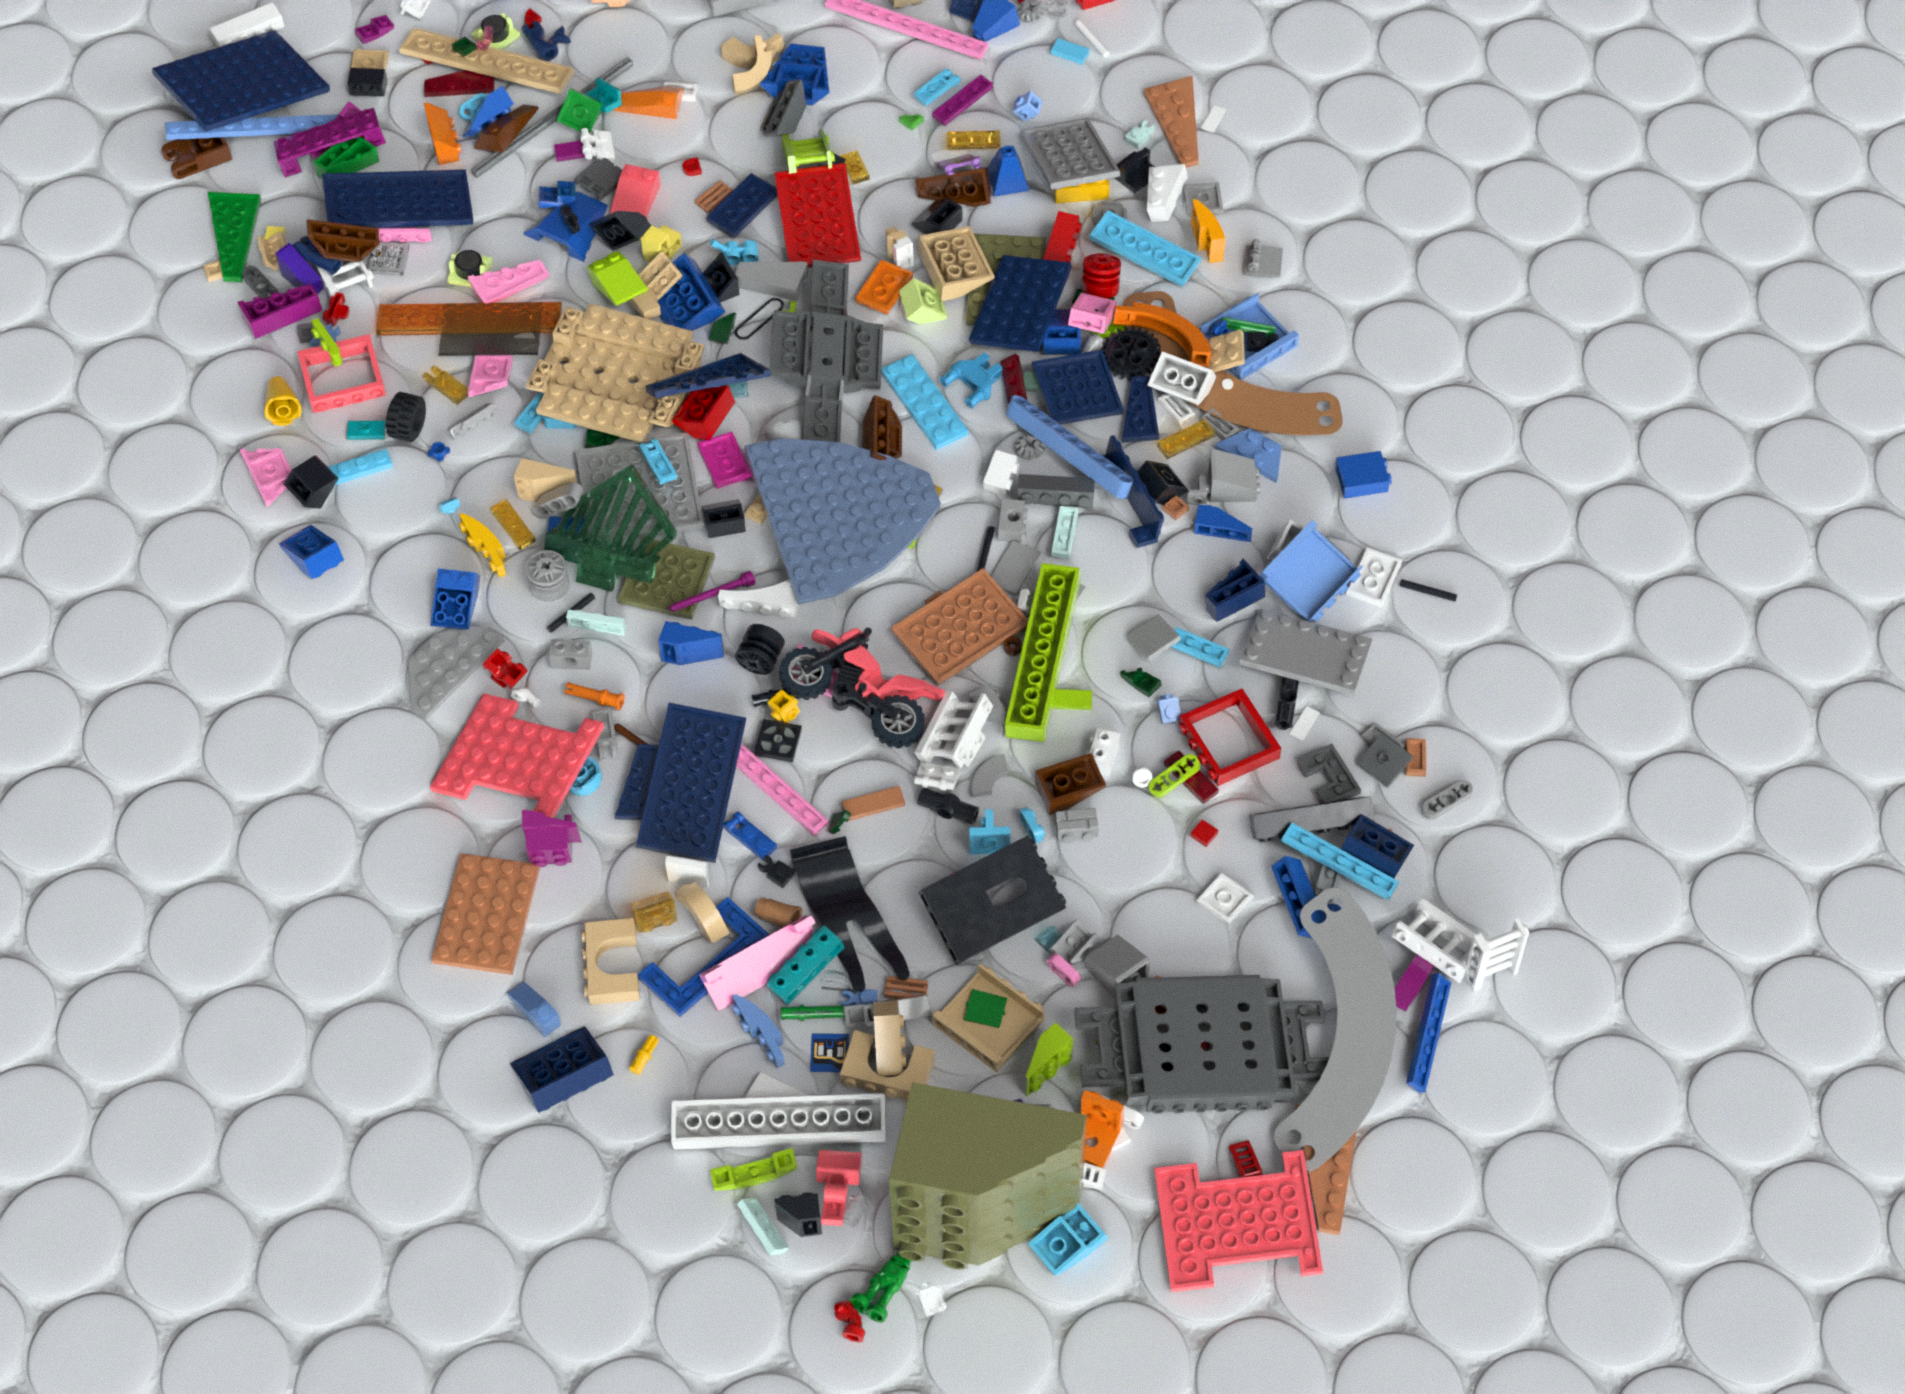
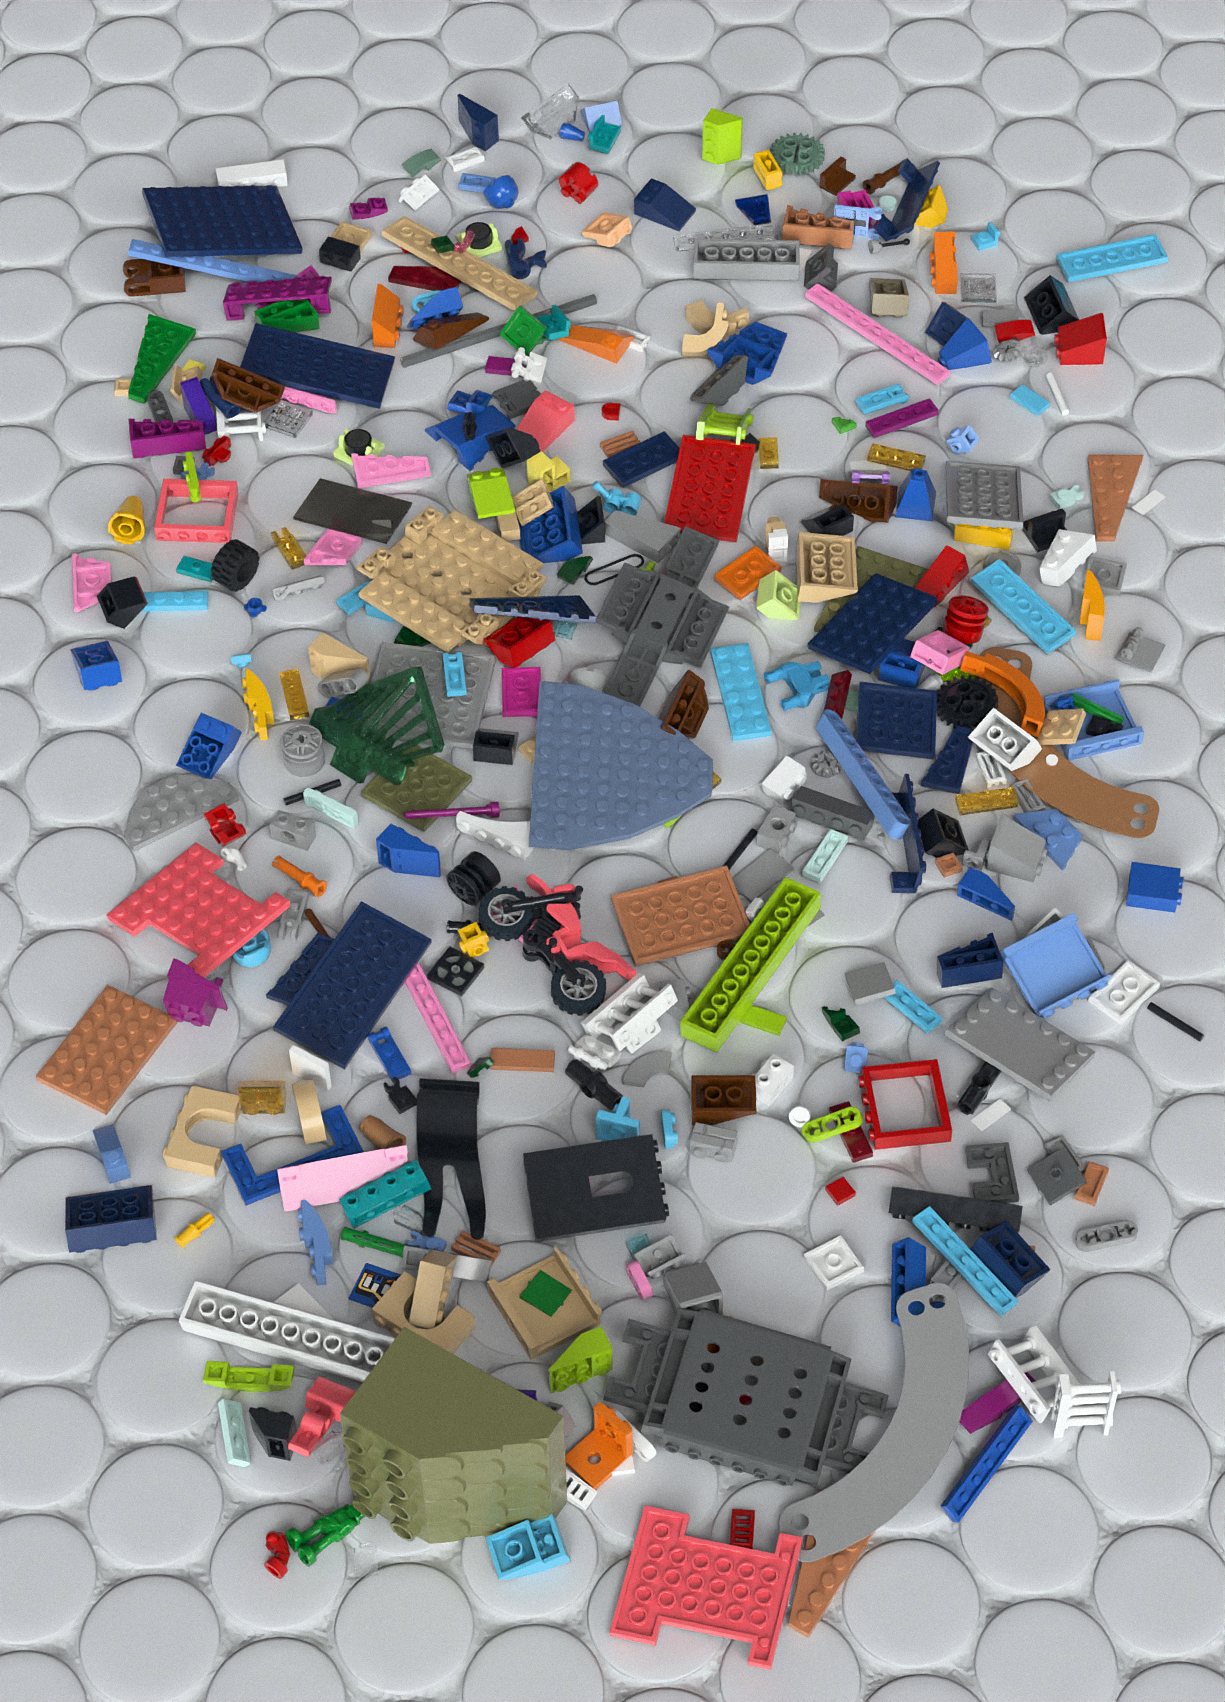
camera: 20 degrees right, 5 degrees down
(467, 318) = (334, 492): clear orange plate -> none

